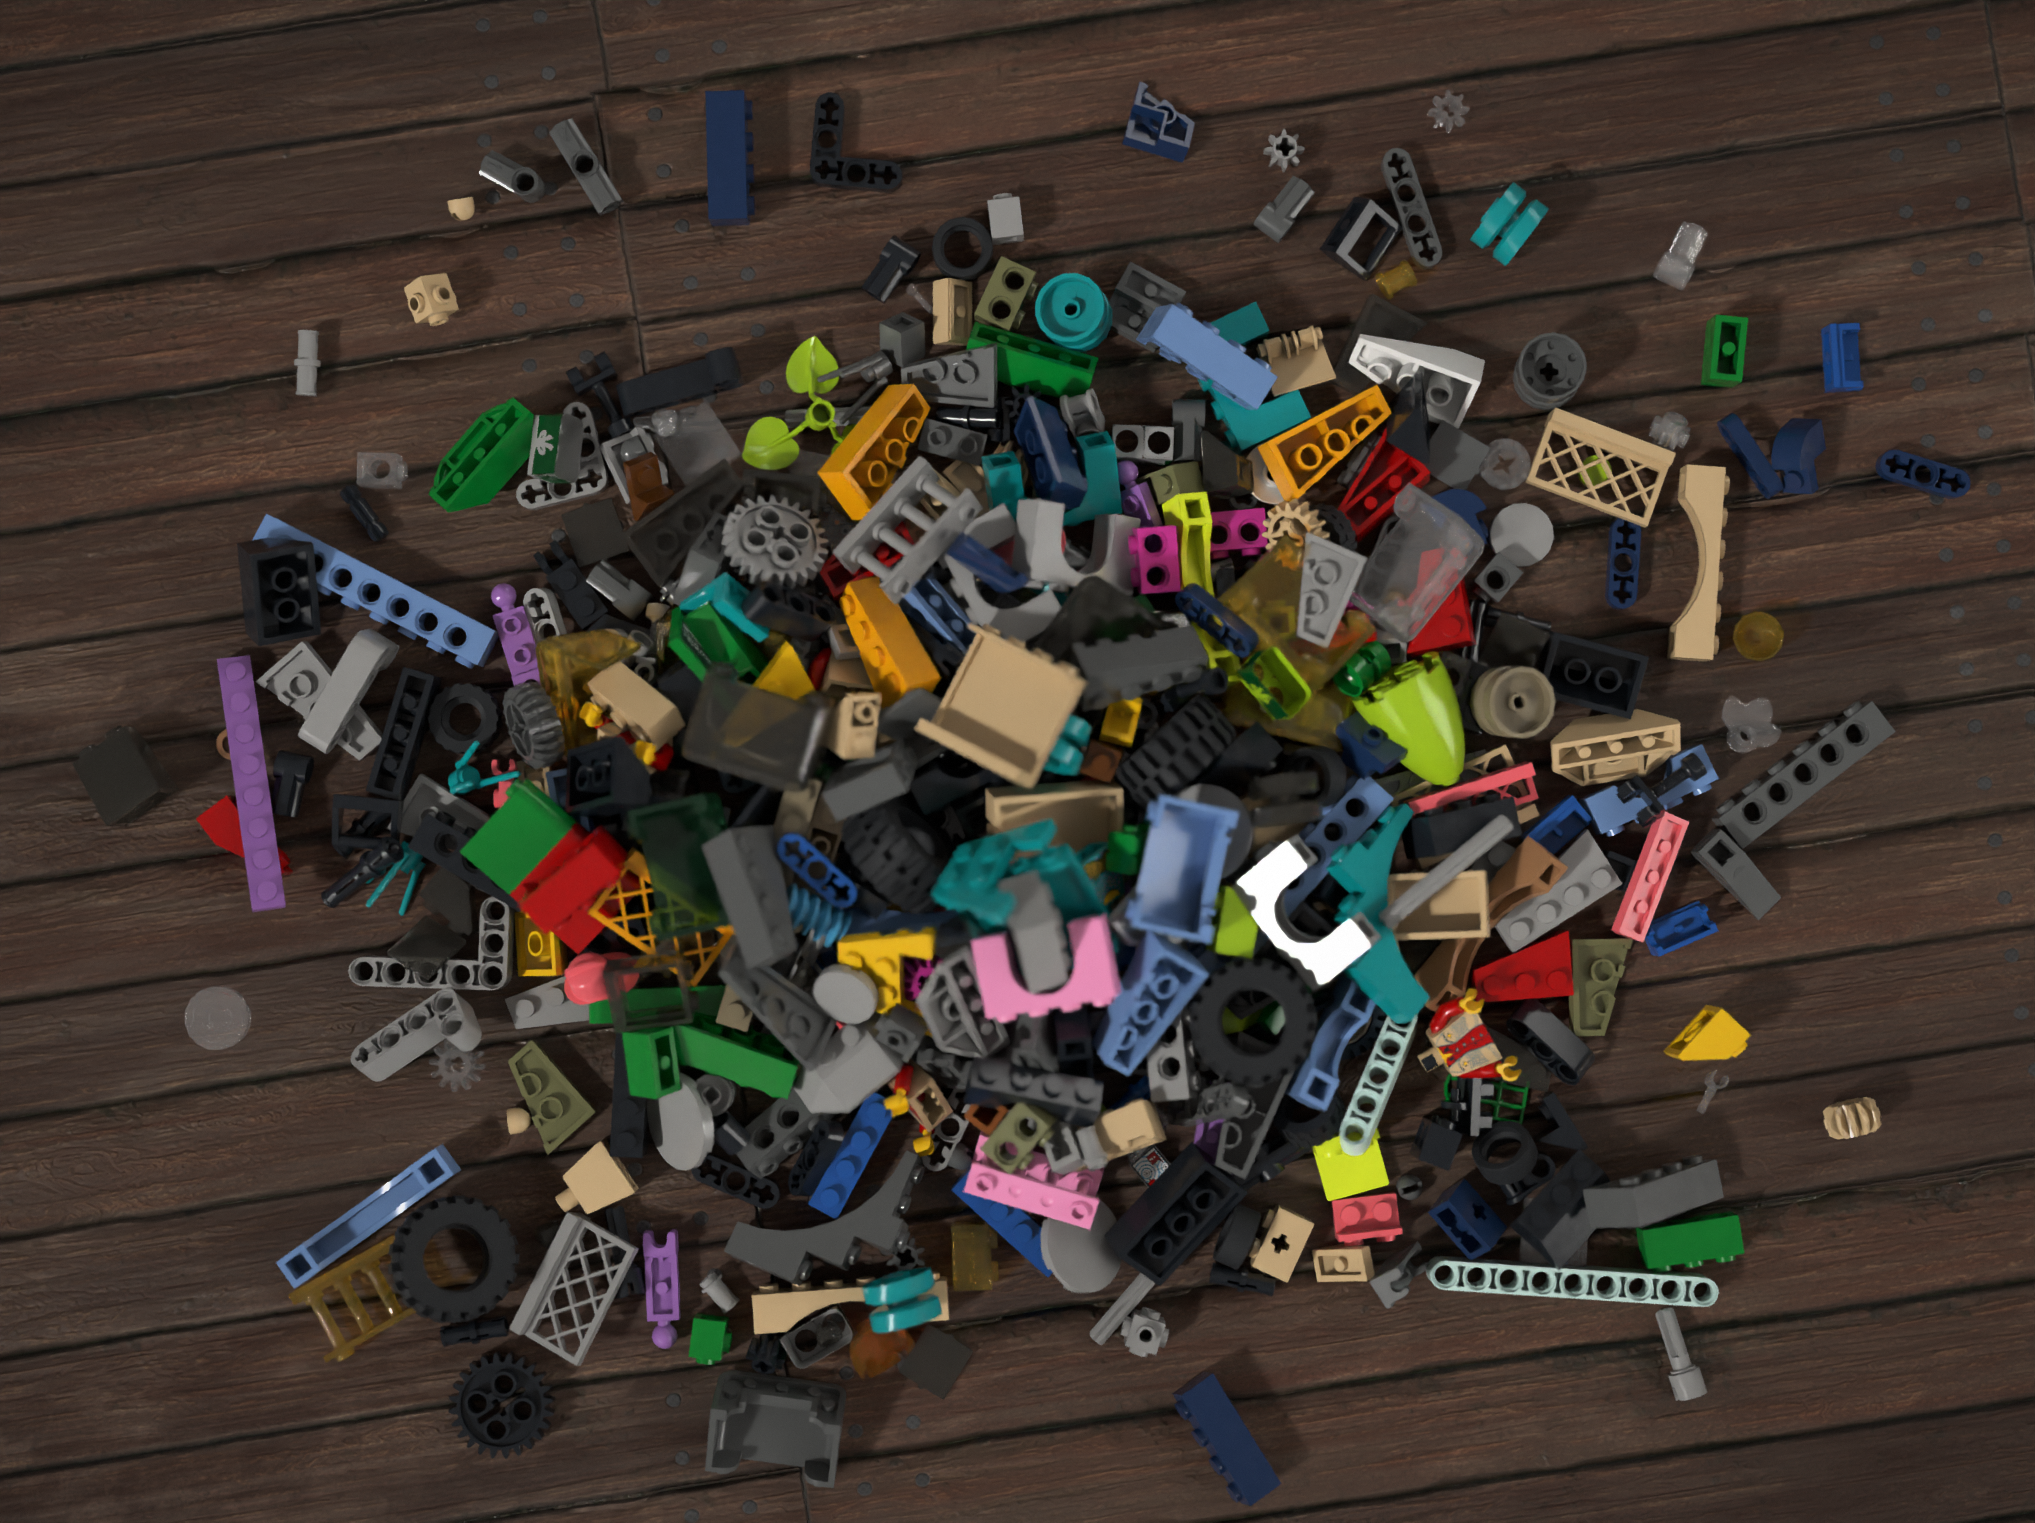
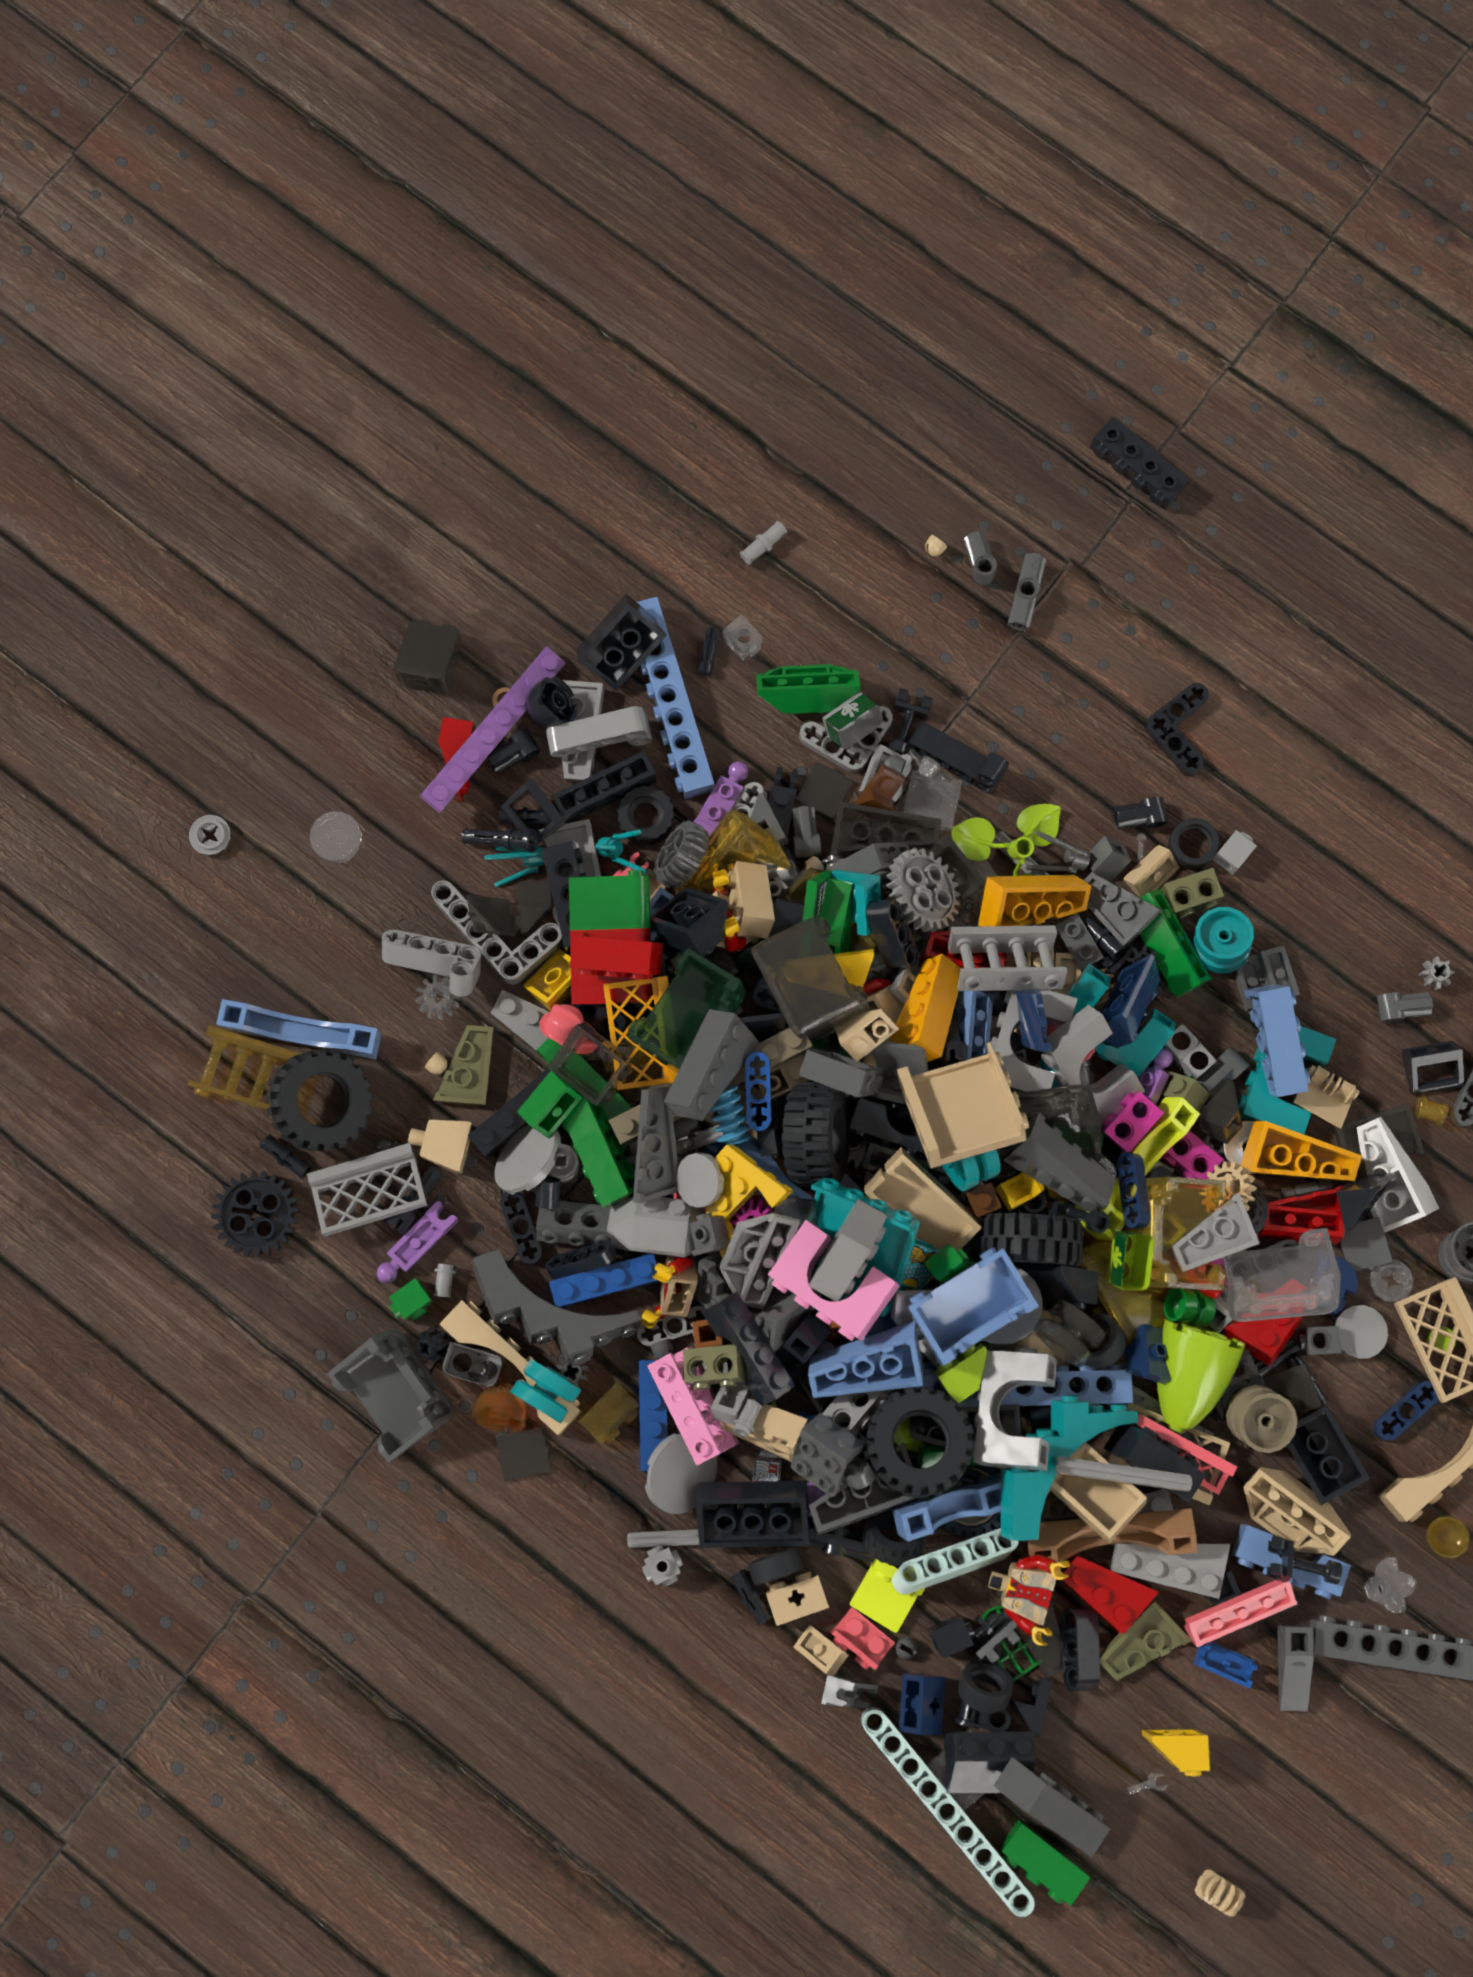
camera: 45 degrees right, 10 degrees down
(98, 1143) = (209, 823): none -> light grey gear
(277, 708) = (551, 703): none -> black cylinder
(431, 299) = (867, 576): tan brick -> none
(569, 613) = (765, 816): none -> dark grey slope
(728, 158) = (1111, 664): dark blue brick -> none
(980, 865) = (851, 1181): teal wing -> none
(1082, 413) = (1171, 999): light grey piece -> none
(1157, 127) = (1374, 889): dark blue slope -> none
(1184, 1110) = (824, 1453): none -> dark grey bracket
(1226, 1439) = (643, 1682): dark blue brick -> none
(1559, 824) = (1216, 1526): blue hinge -> none
(1685, 1377) = (956, 1946): light grey piece -> none

